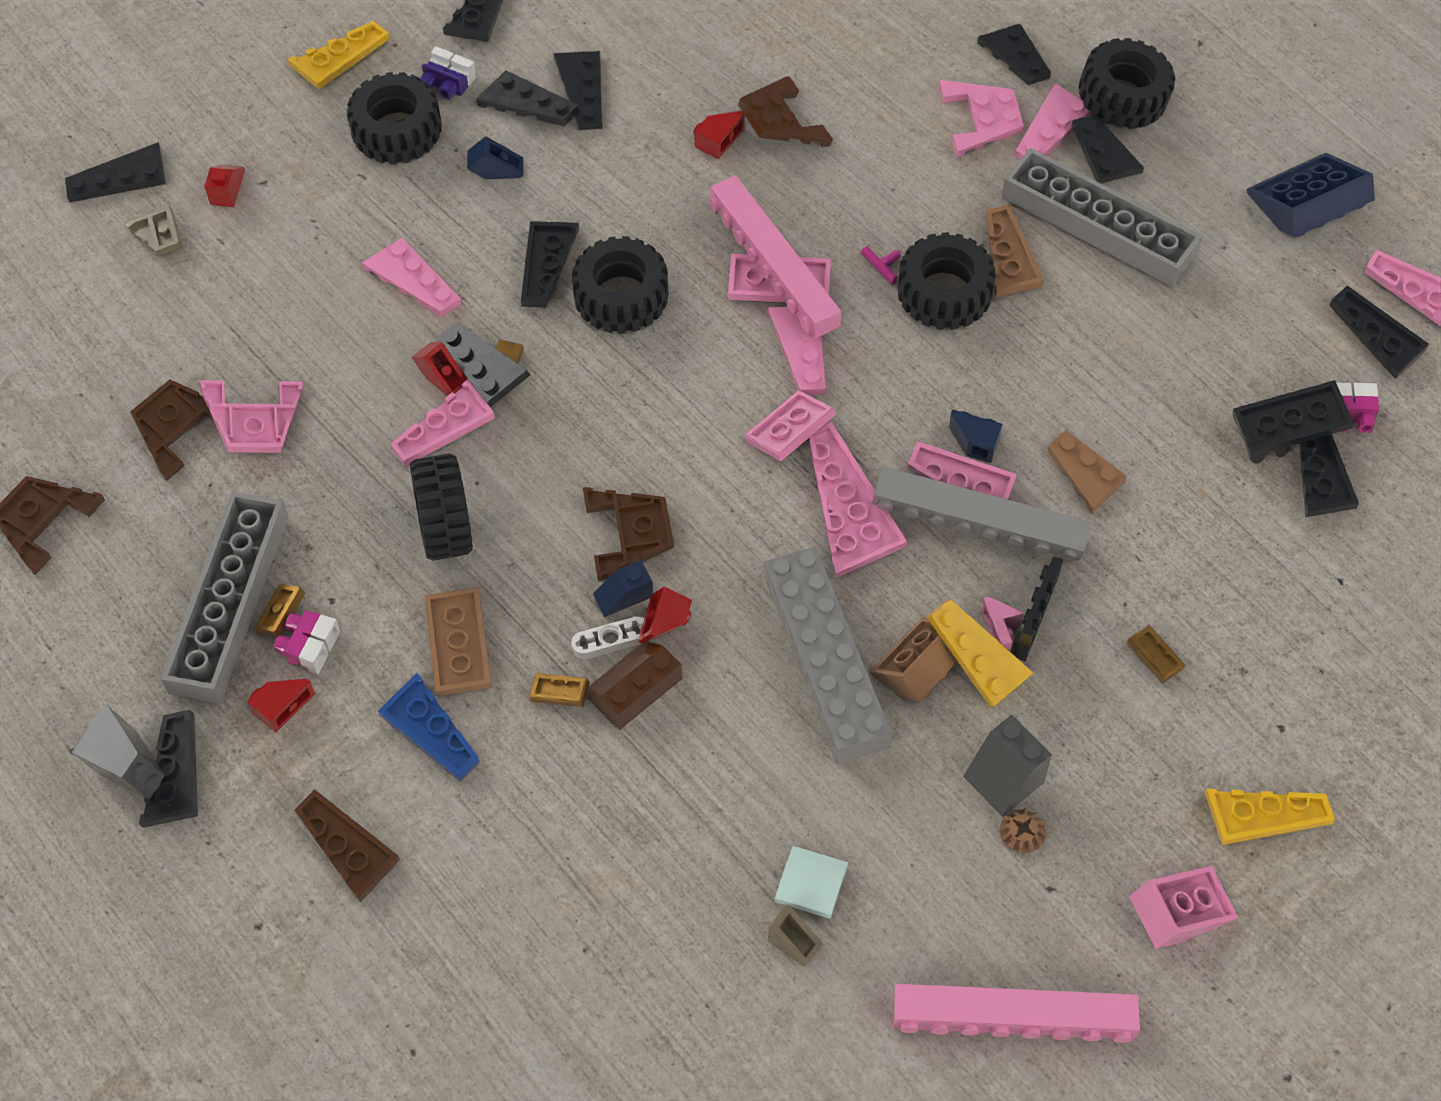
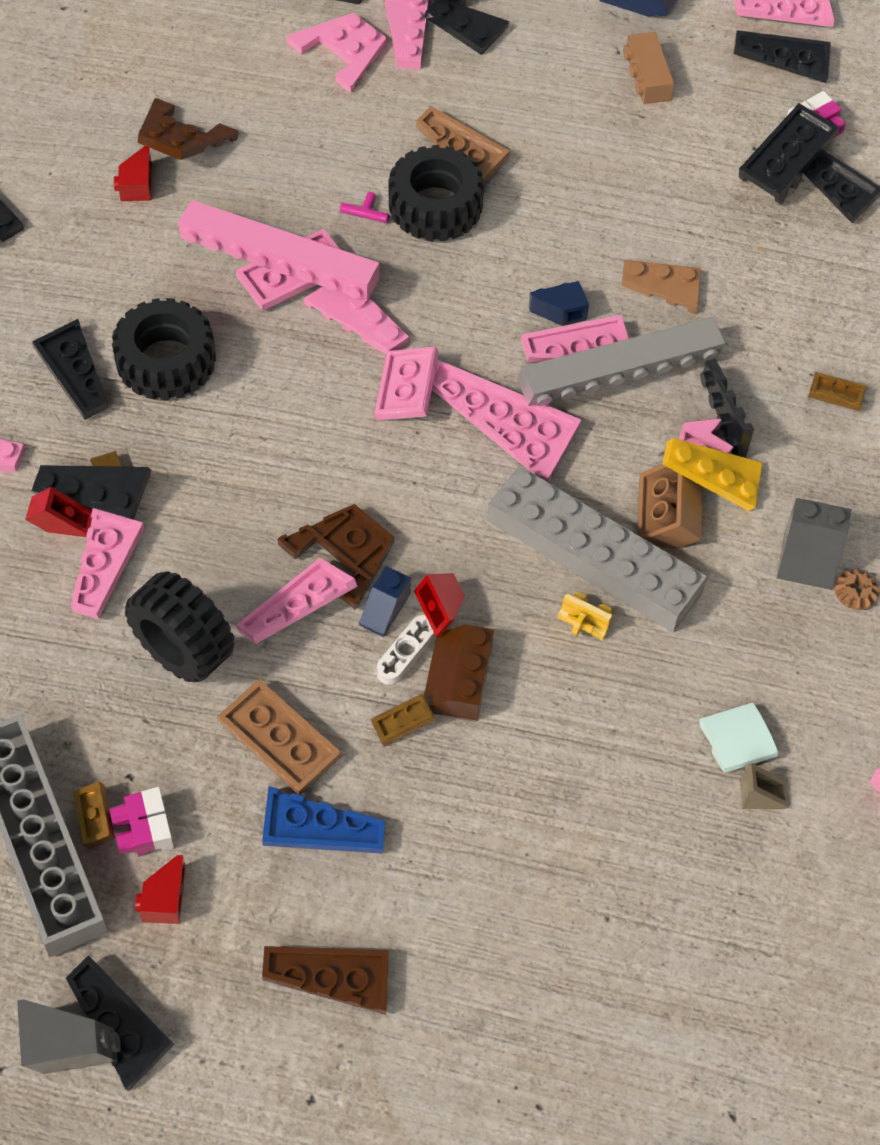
camera: 40 degrees left, 0 degrees up
(569, 544) = (301, 596): none -> bright pink wing
(768, 704) = (585, 616): none -> yellow hips
(1101, 217) = (512, 76): light grey brick -> none
(1233, 275) = (648, 68): none -> medium nougat brick

